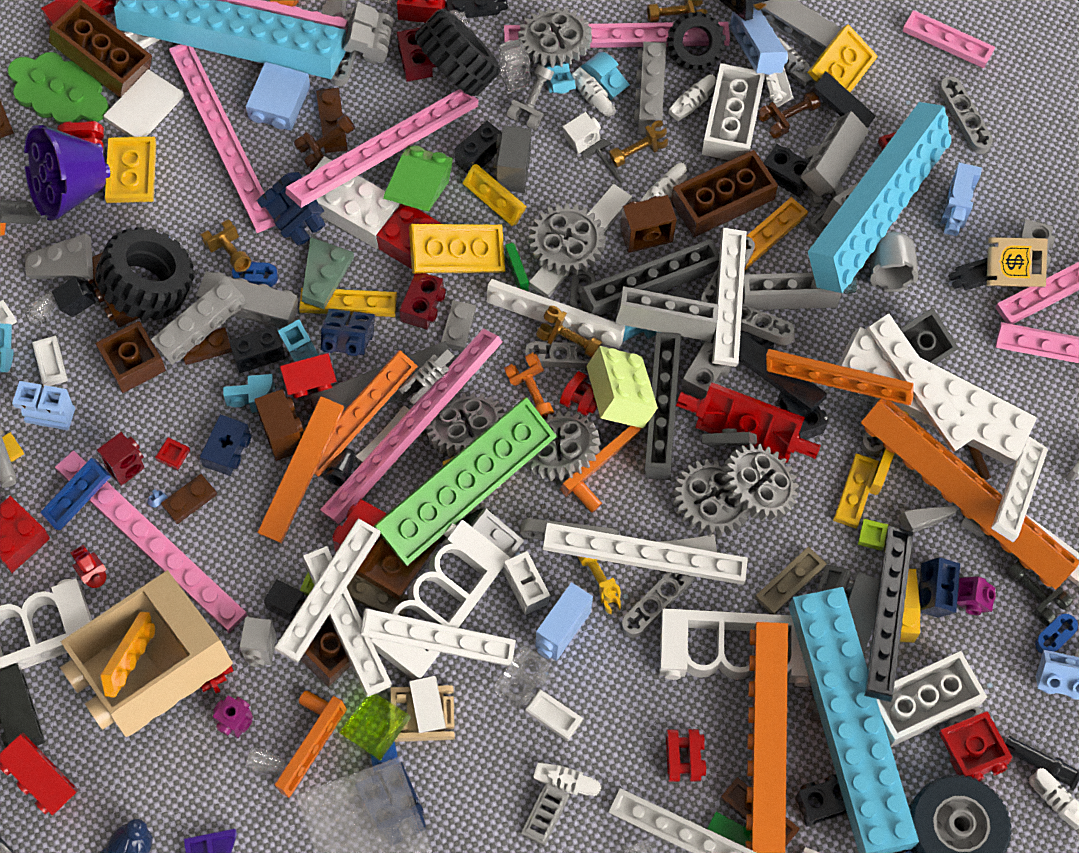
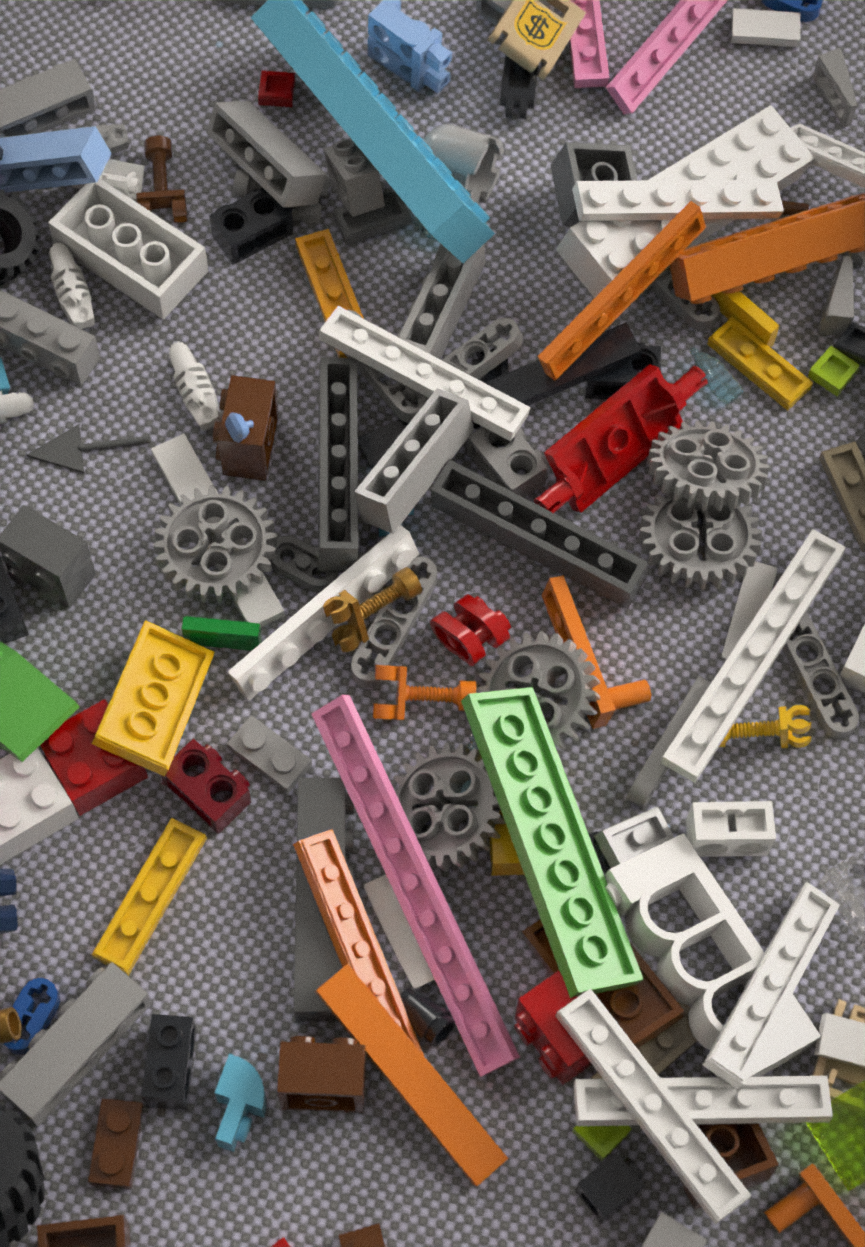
camera: 65 degrees left, 0 degrees up
(199, 320) = (87, 1129): light grey brick -> none
(224, 433) = (287, 1165): dark blue brick -> none
(297, 341) = (201, 993): medium azure brick -> none
(308, 374) = (262, 997): red brick -> none
(324, 271) = (84, 907): sand green wing -> none
(346, 334) = (217, 915): dark blue hips -> none
(428, 374) = (350, 822): light grey hinge -> none
(494, 195) = (83, 612): yellow tile -> none
(563, 622) = (813, 803): light blue brick -> none
(582, 132) = (47, 451): white brick -> none
(618, 156) = (110, 366): pearl gold bar -> none
(621, 387) = (495, 569): yellowish green brick -> none
(634, 211) = (238, 427): none -> medium blue rock
(724, 193) = (248, 311): reddish brown brick -> none
(729, 437) = (626, 473): dark grey plate -> none
(831, 469) = (719, 378): none -> clear light blue piece
(841, 99) = (180, 111): black tile -> none
(844, 59) = (127, 85): yellow plate -> none

